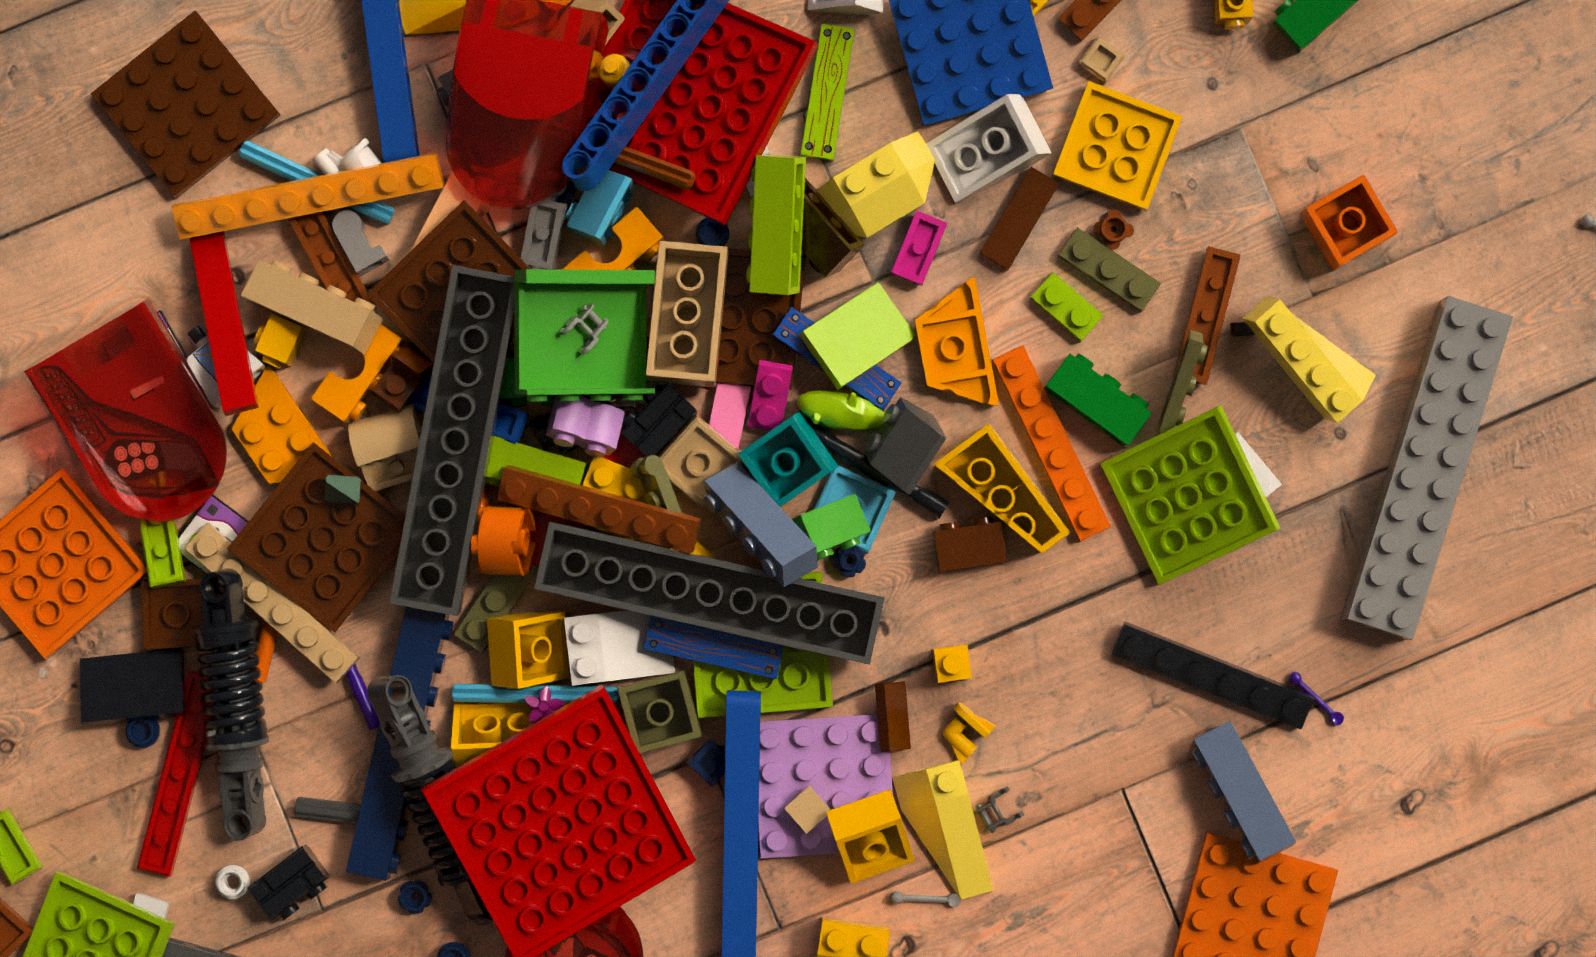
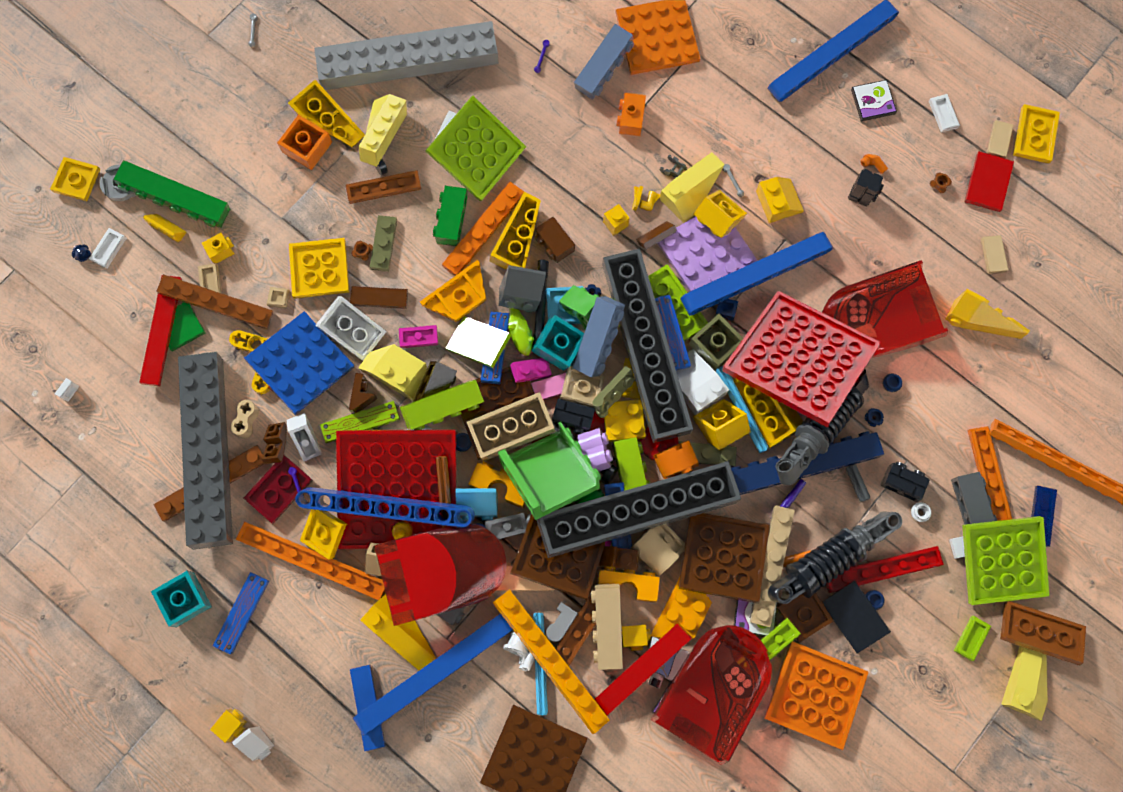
camera: 115 degrees left, 10 degrees down
(342, 489) = (694, 557): sand green slope -> none
(543, 705) = (747, 399): magenta plant -> none
(592, 334) = (547, 466): light grey piece -> none
(599, 509) = (634, 419): dark orange plate -> none
(807, 809) = (724, 249): tan tile -> none
(863, 105) = (359, 399): none -> reddish brown slope
(1066, 306) = (412, 254): lime plate -> none
(1127, 791) = (632, 114): none -> orange brick
(1183, 381) = (422, 178): olive plate -> none
(1213, 675) = (556, 104): black plate -> none
(1391, 277) = (321, 109): none -> yellow wedge

